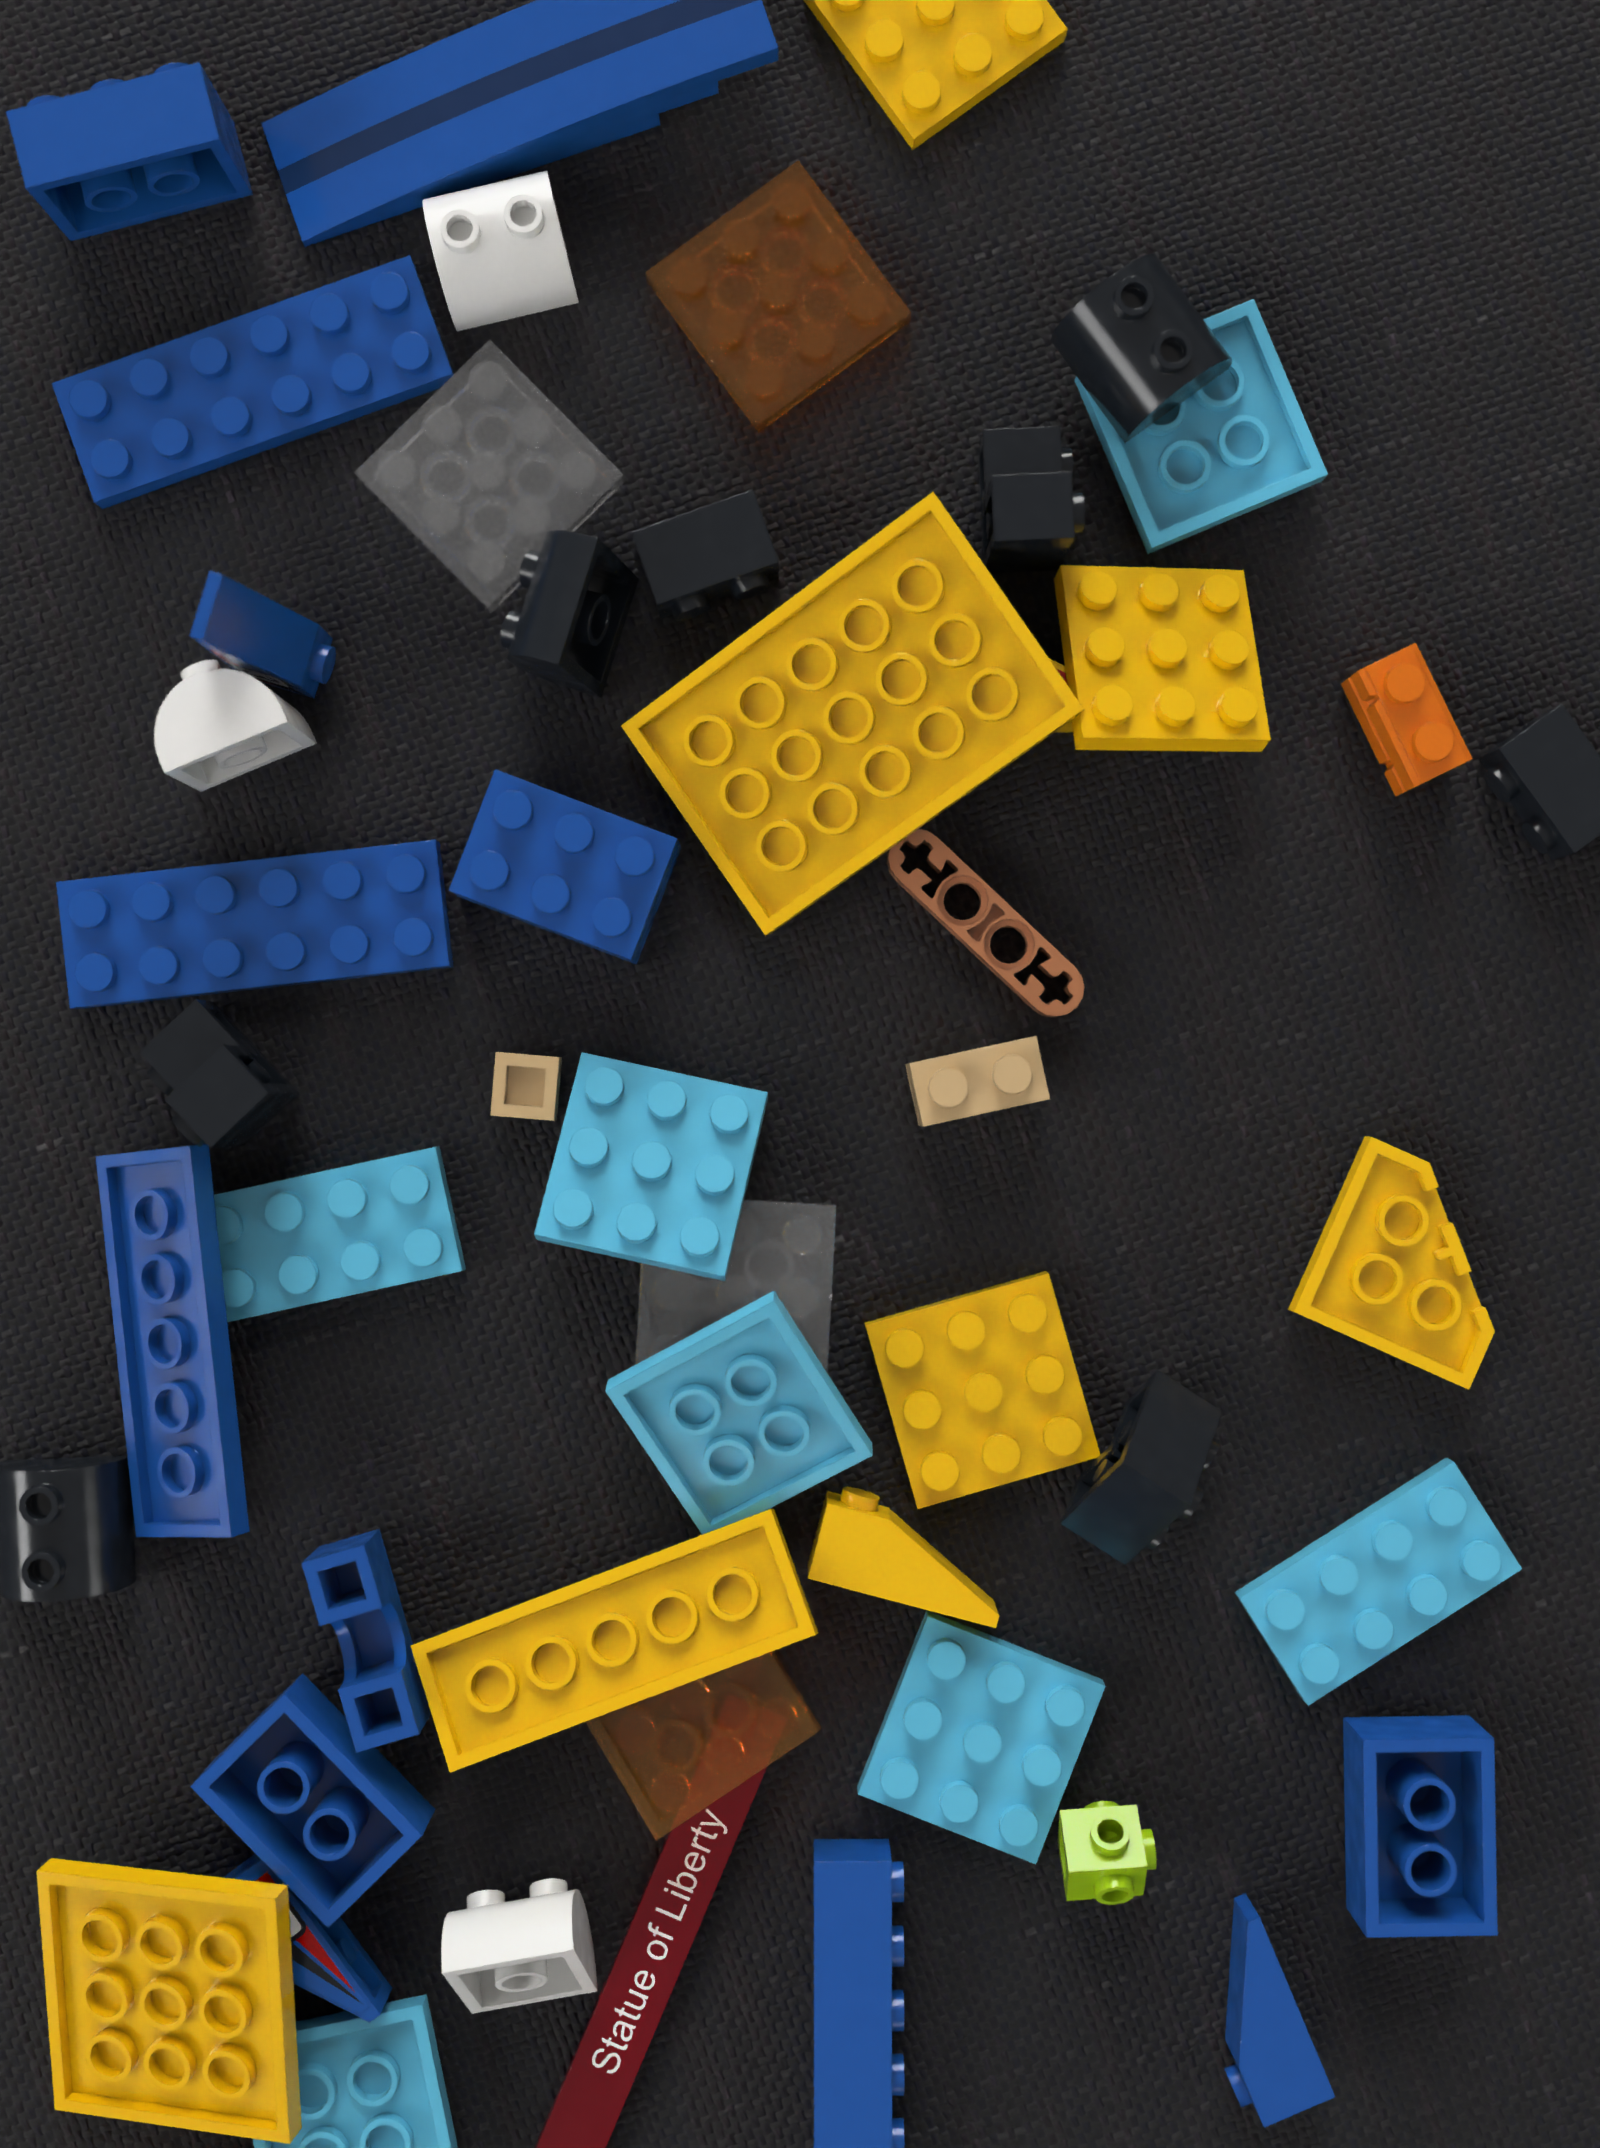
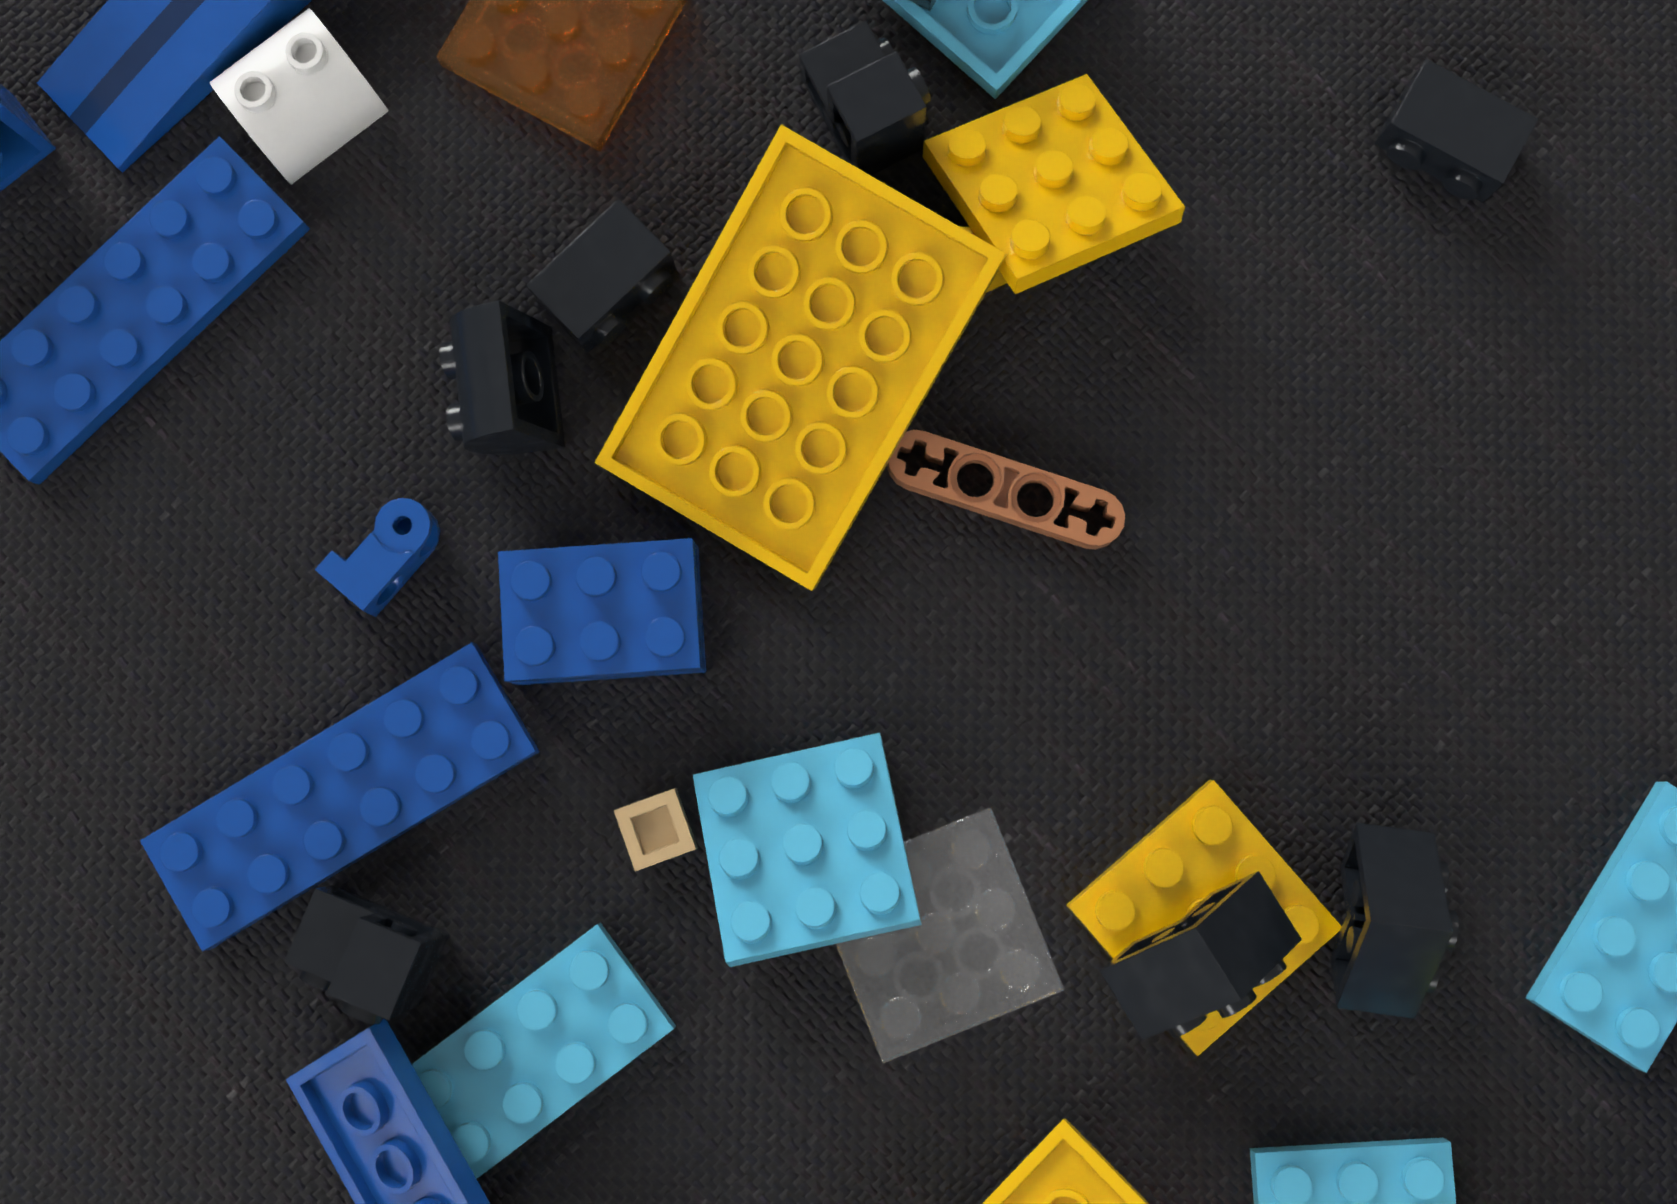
camera: 20 degrees left, 5 degrees down
(224, 726) = (233, 626): white brick -> none
(262, 637) = (232, 529): blue slope -> none
(390, 727) = (387, 557): none -> blue leg
(489, 474) = (375, 295): clear plate -> none
(739, 1415) = (993, 1045): medium azure plate -> none
(880, 1555) = (1182, 1116): yellow slope -> none
(960, 1428) = (1204, 960): none -> black brick
(977, 1081) = (1066, 634): tan brick -> none
(1396, 1269) = (1527, 630): yellow plate -> none
(1405, 719) = (1294, 137): orange brick -> none

